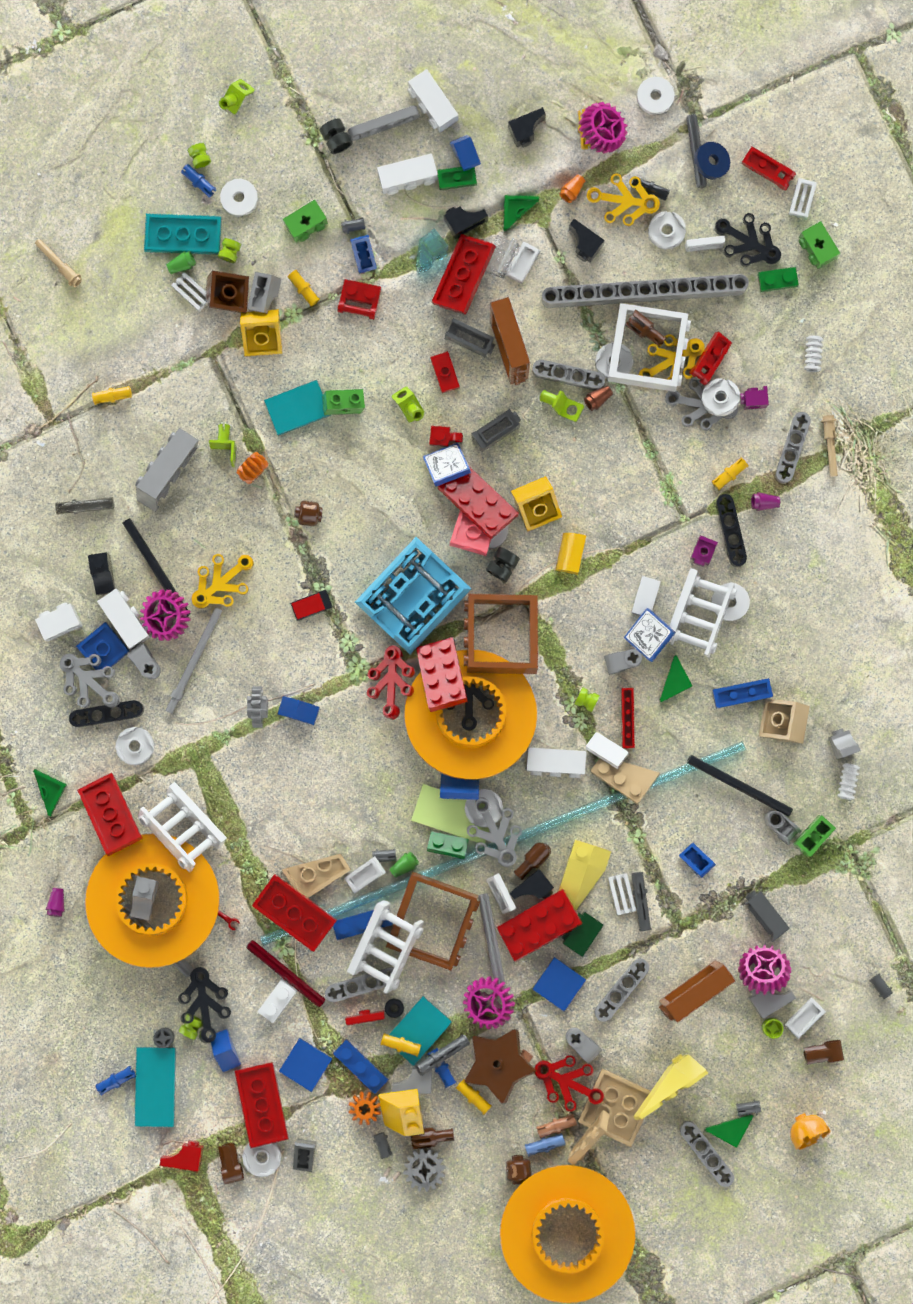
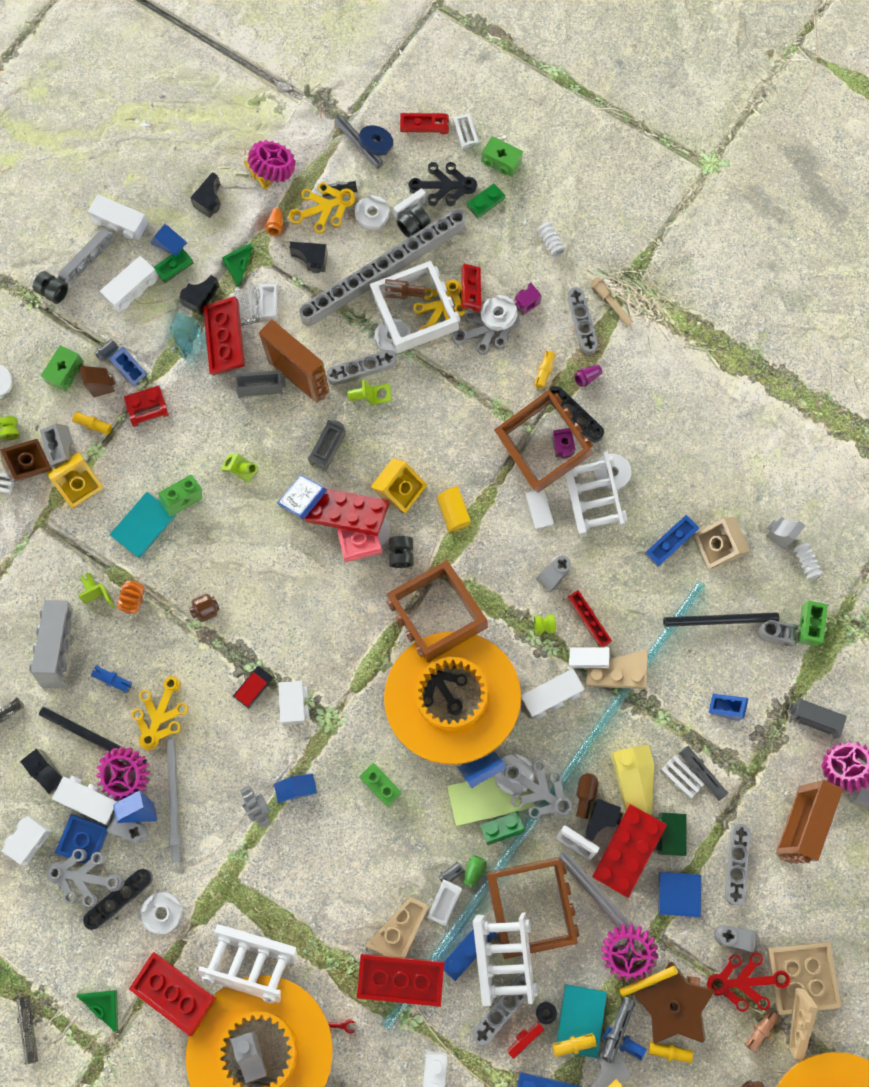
camera: 35 degrees left, 10 degrees down
(159, 650) = (135, 809): none -> slope
(198, 528) = (111, 679): none -> blue pin
(285, 973) = (426, 1044): dark red axle -> none
(330, 252) = (98, 380): none -> reddish brown slope
(336, 639) = (292, 702): none -> white brick
(369, 750) = (380, 784): none -> bright green brick
(391, 679) = (362, 709): plant -> none
(413, 595) = (338, 624): medium azure piece -> none
(441, 436) = (283, 477): red plate -> none
(441, 674) = (406, 676): plate -> none
(445, 372) = (255, 424): red plate -> none
(489, 1033) = (648, 981): none -> yellow bar
(545, 1145) = (763, 1056): medium blue pin -> none
(597, 398) = (396, 373): copper cone -> none
(649, 634) = (563, 537): tile -> none
(654, 543) = (524, 415): none -> dark orange window
(659, 85) = (297, 110): white tile -> none
(676, 680) = (609, 563): green tile -> none
(679, 1075) = (839, 913): light yellow wedge -> none
(697, 262) = (413, 221): none -> pearl dark grey wheel

